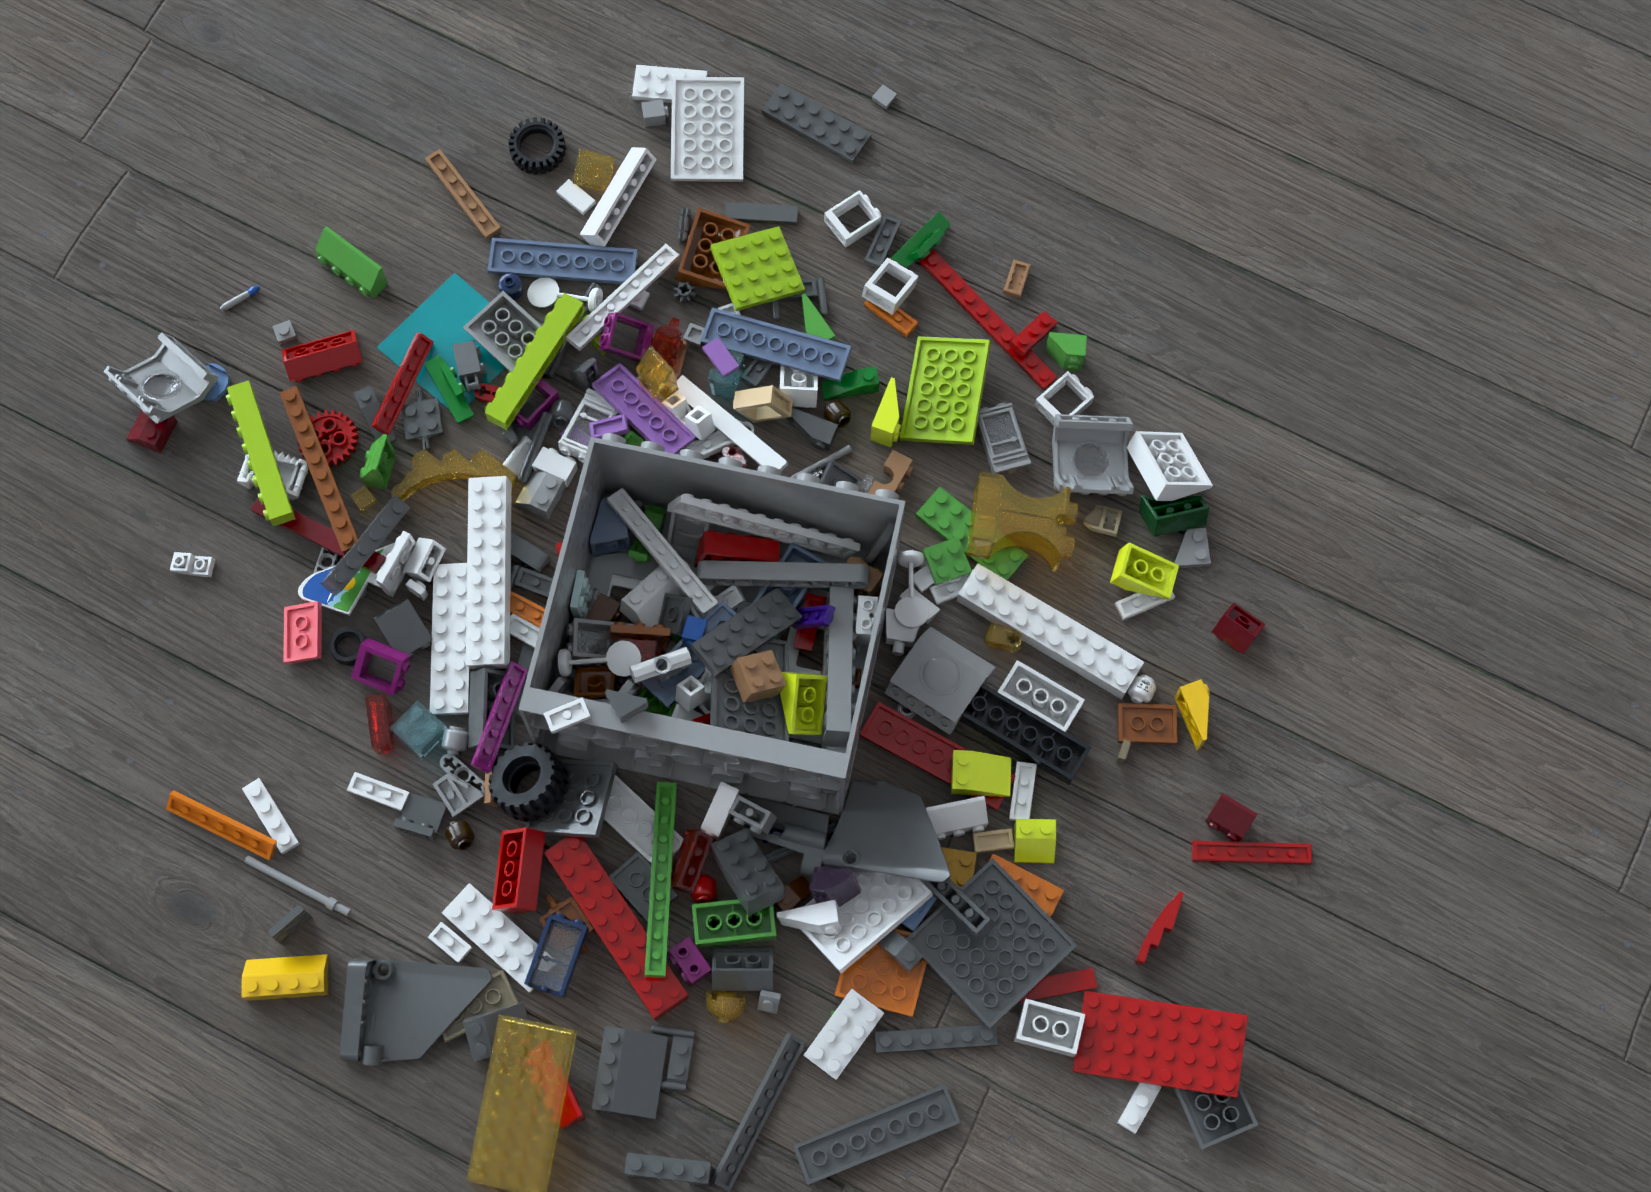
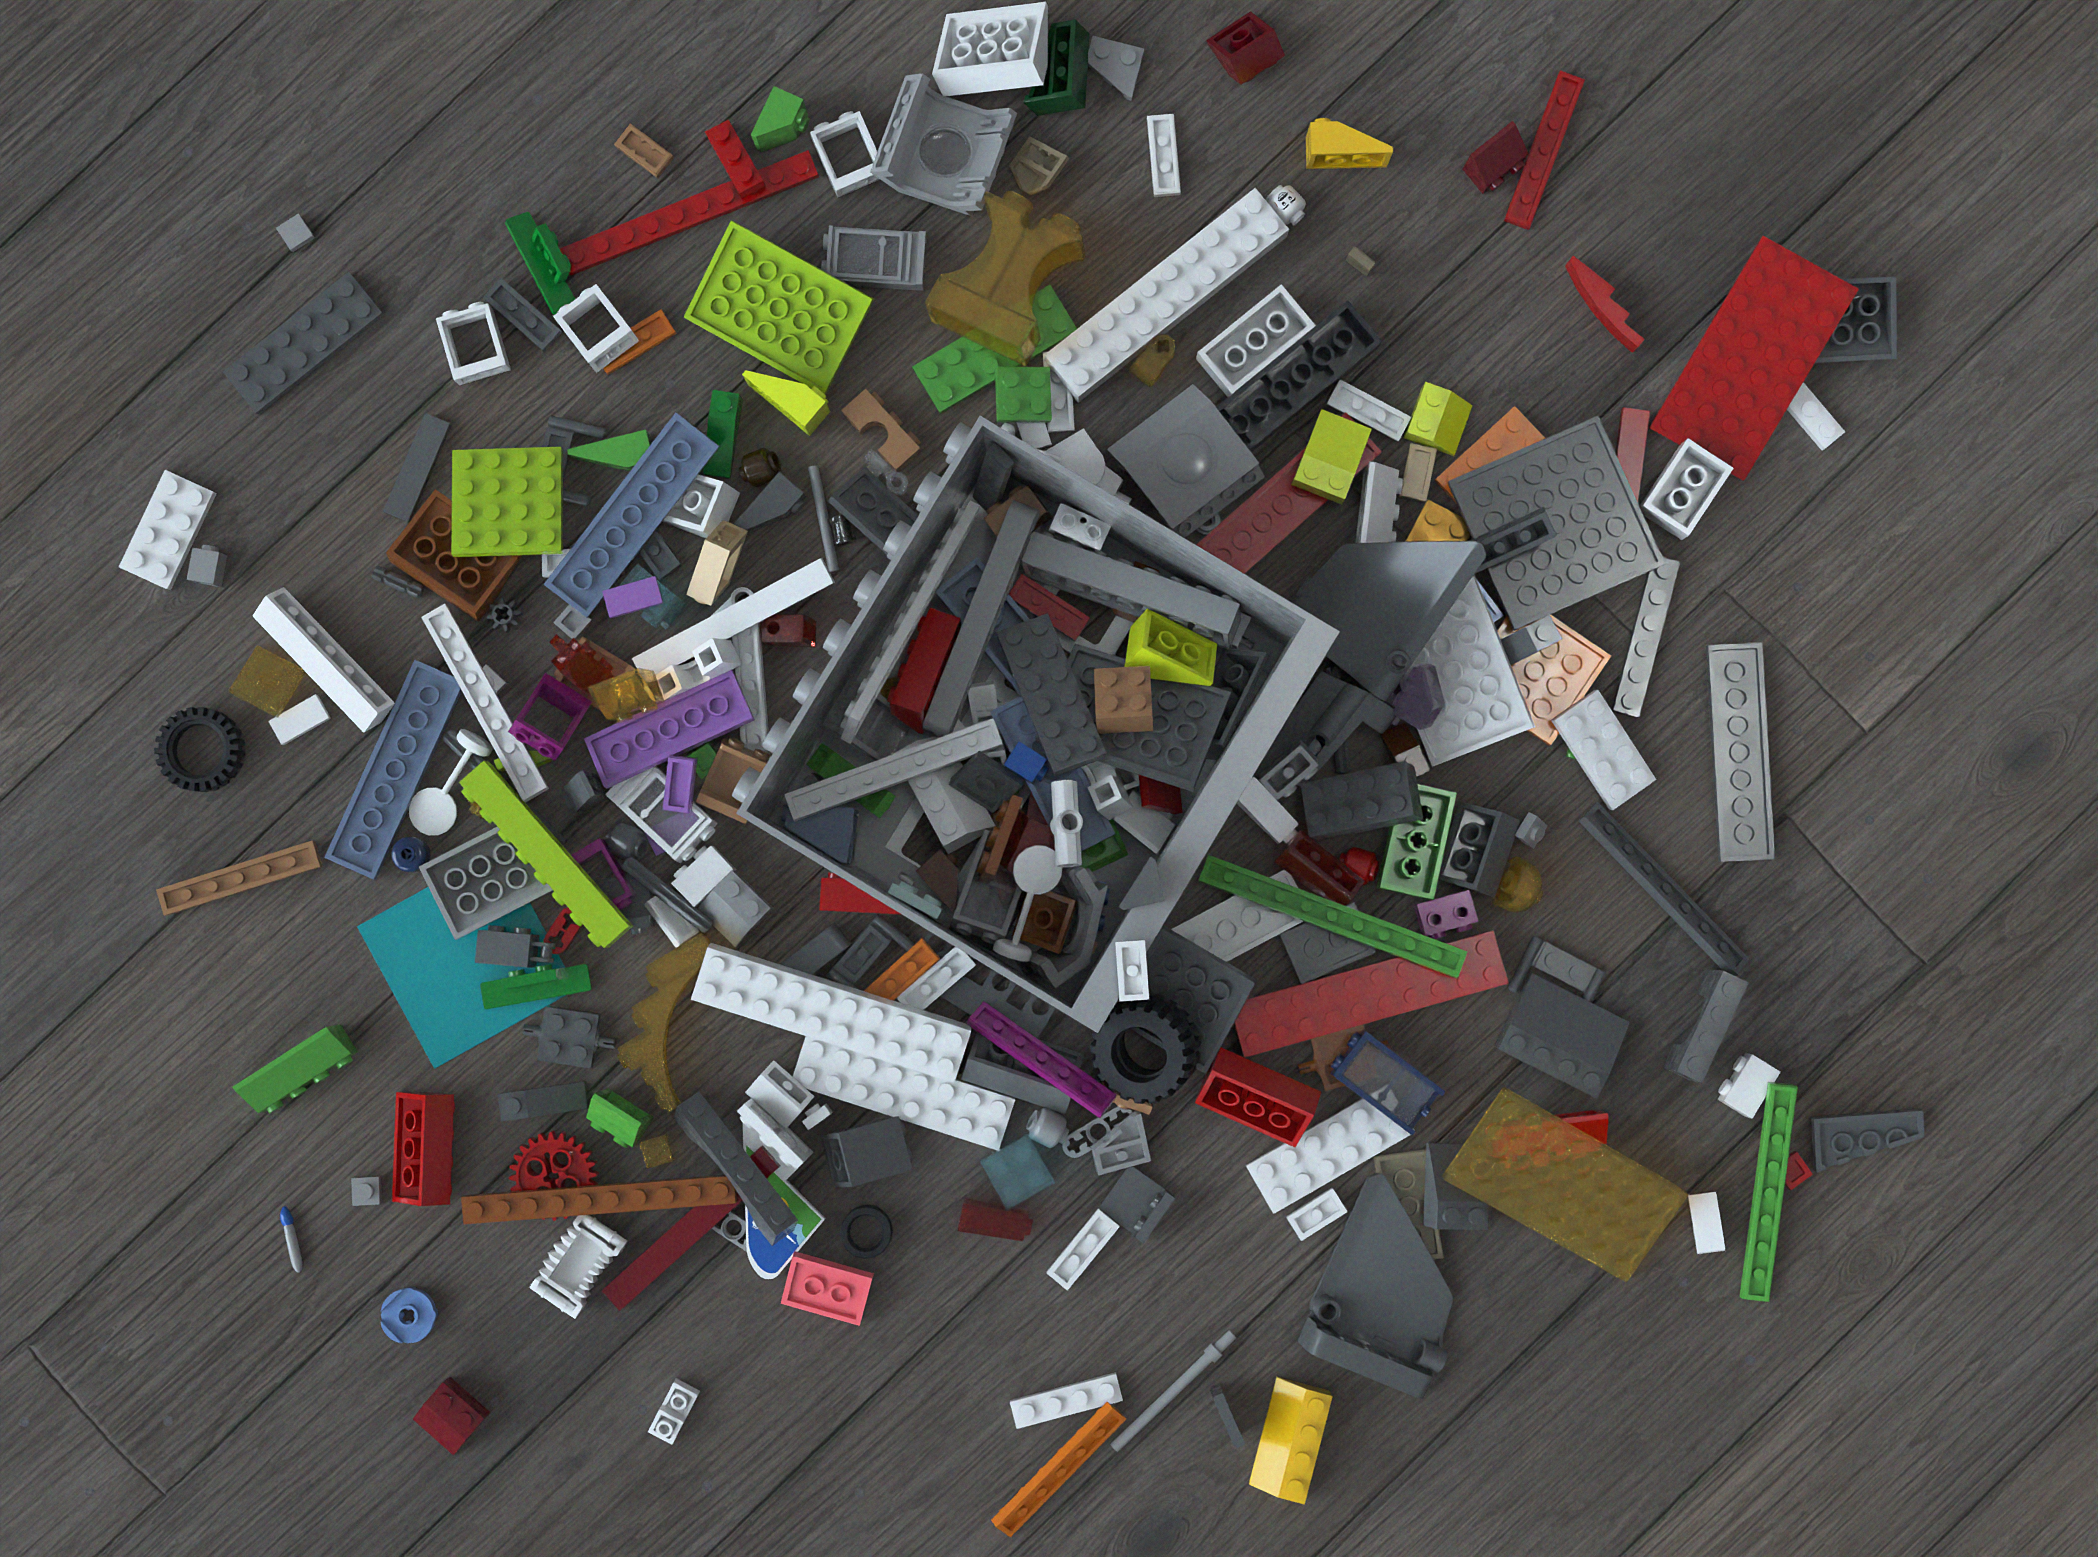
camera: 65 degrees left, 15 degrees up
(166, 381) = (389, 1380): light grey panel -> none
(261, 453) = (549, 1275): lime brick -> none
(361, 665) = (902, 1183): magenta window -> none
(402, 384) = (507, 1048): red tile -> none
(459, 835) = (1179, 1159): dark brown head -> none
(707, 129) = (260, 499): white plate -> none
(815, 617) = (1056, 595): dark purple plate -> none
(817, 918) = (1453, 730): white slope -> none
(1144, 572) = (1129, 141): neon yellow slope -> none
(1147, 723) = (1333, 216): dark orange plate -> none

